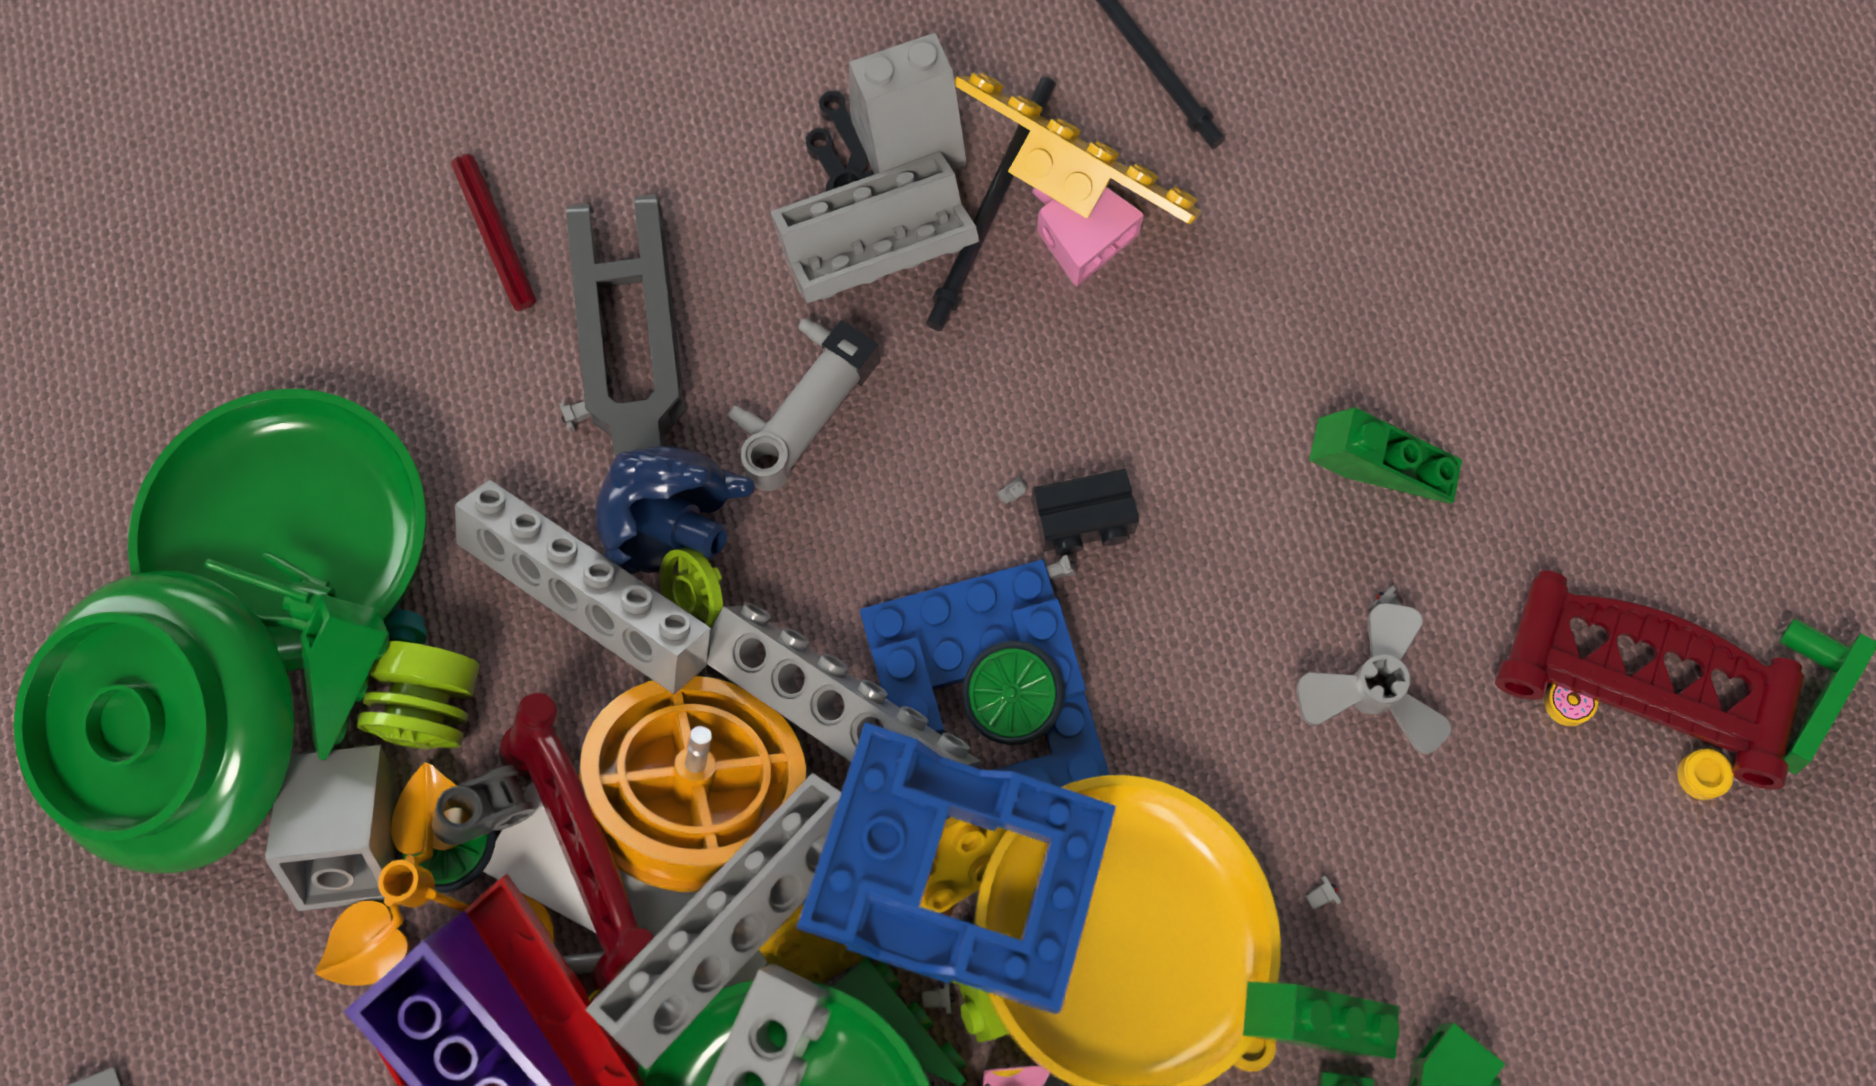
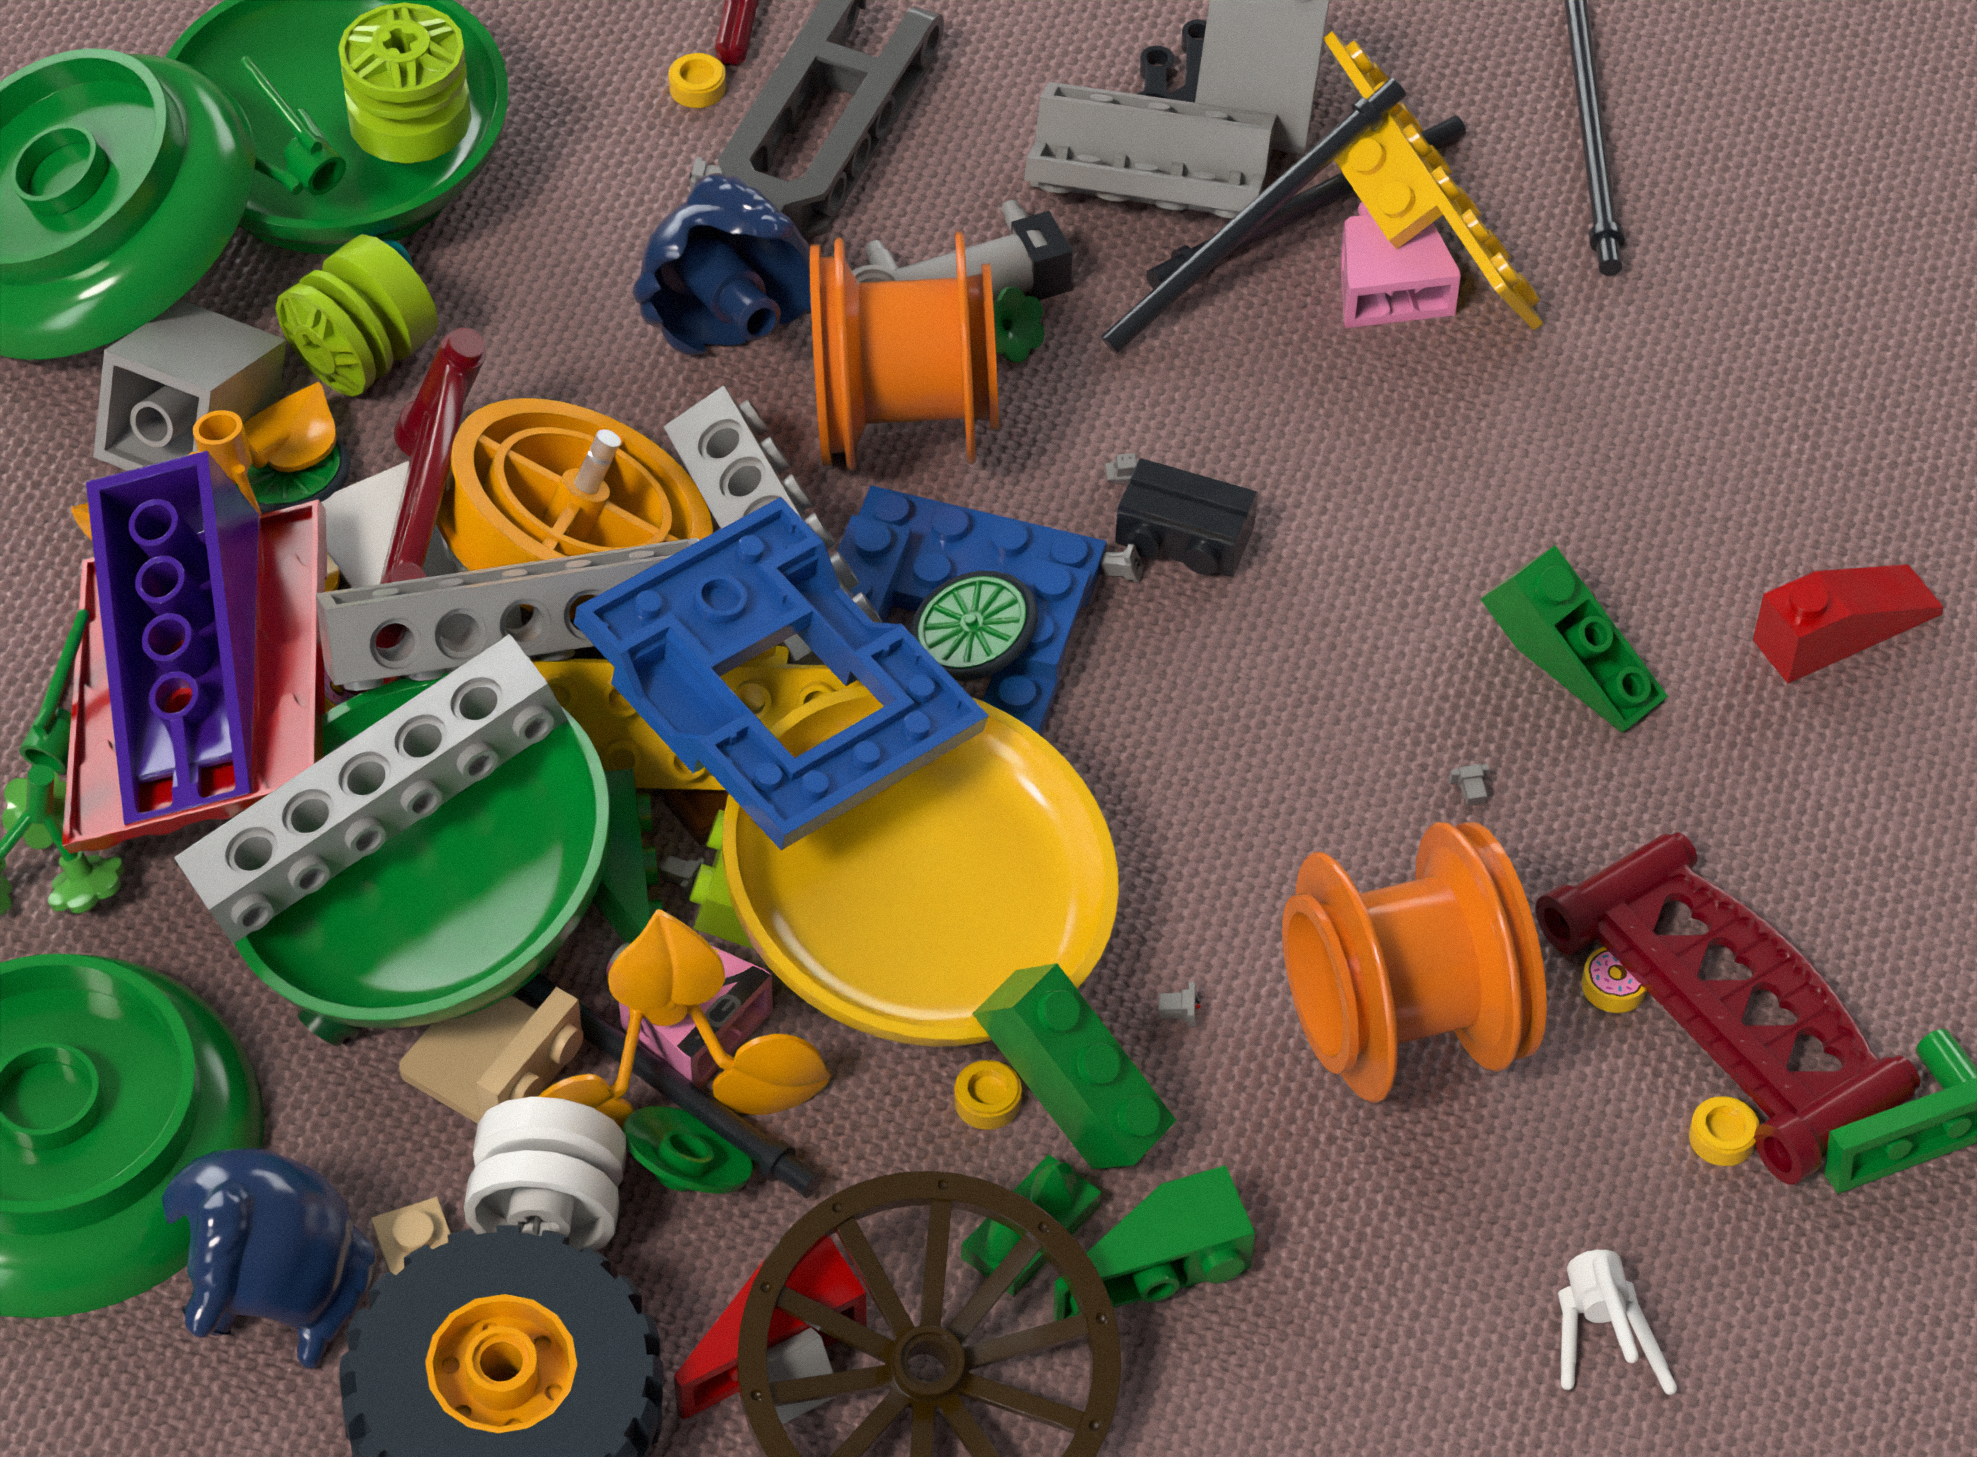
camera: 30 degrees right, 20 degrees down
(337, 656) = (302, 218): green slope -> none
(353, 517) = (405, 82): none -> lime wheel
(490, 801) = (340, 435): dark grey piece -> none
(514, 336) = (697, 80): none -> yellow tile
(582, 586) = (594, 302): light grey brick -> none
(694, 587) = (703, 364): lime wheel -> none
(837, 511) = (900, 351): none -> orange wheel
(868, 420) = (1017, 324): none -> green plant
(1024, 134) = (1365, 115): none -> black bar
(1390, 635) = (1384, 825): light grey piece -> none
(1492, 803) = (1416, 959): none -> orange wheel
(1533, 336) = (1839, 615): none -> red slope
(1721, 949) = (1605, 1296): none -> white plant

